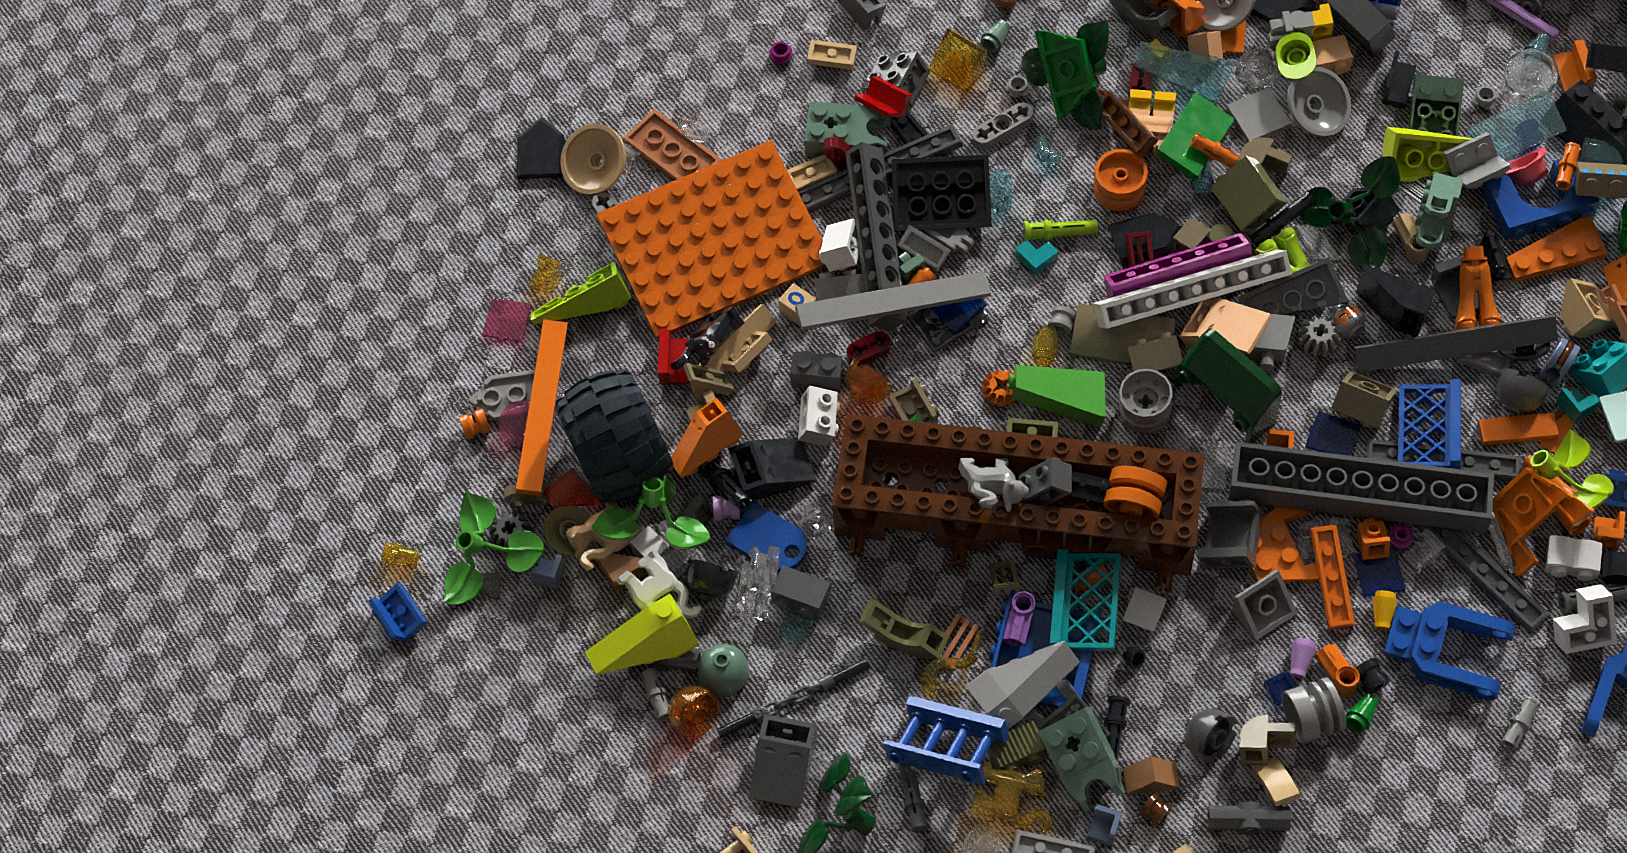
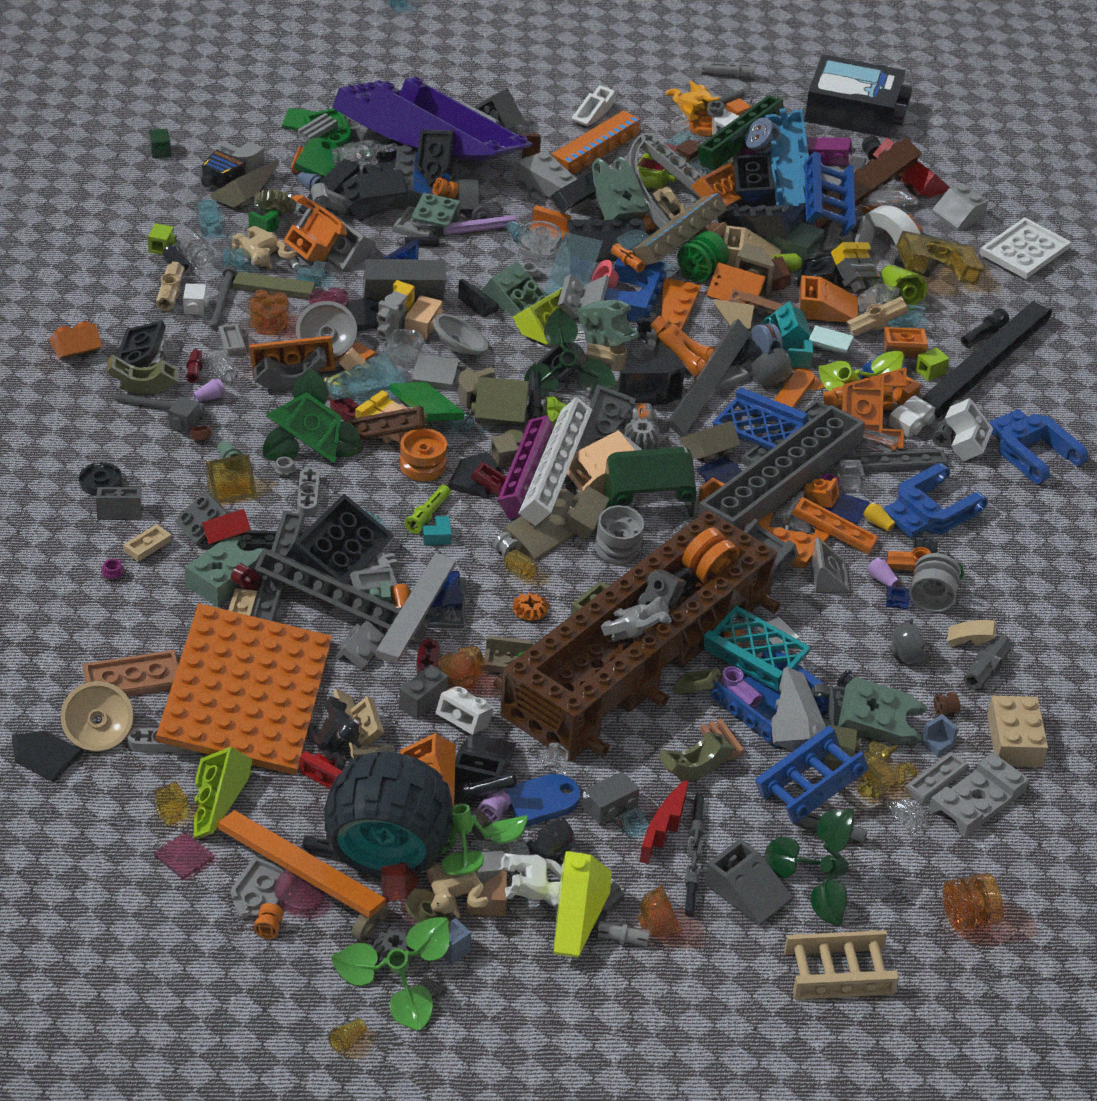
camera: 65 degrees left, 20 degrees down
(398, 613) = (405, 1060): blue bracket -> none
(692, 120) = (122, 651): clear piece -> none
(723, 670) = (636, 878): sand green cylinder -> none
(756, 579) = (582, 812): clear animal -> none
(791, 298) = (353, 673): tan brick -> none
(819, 650) = (666, 819): none -> red slope
(840, 246) = (330, 617): white brick -> none
(929, 674) = (740, 767): clear yellow piece -> none
(1045, 153) = (356, 483): clear light blue arm -> none
(1062, 392) = (570, 572): bright green slope -> none
(1135, 652) = (814, 655): black hinge -> none
(1151, 776) = (919, 690): medium nougat slope -> none
(1213, 150) = (443, 395): orange pin -> none
(1260, 735) = (936, 620): dark tan brick -> none
(1295, 56) = (420, 317): lime piece -> none
(1520, 723) = (1013, 503): light grey pin -> none

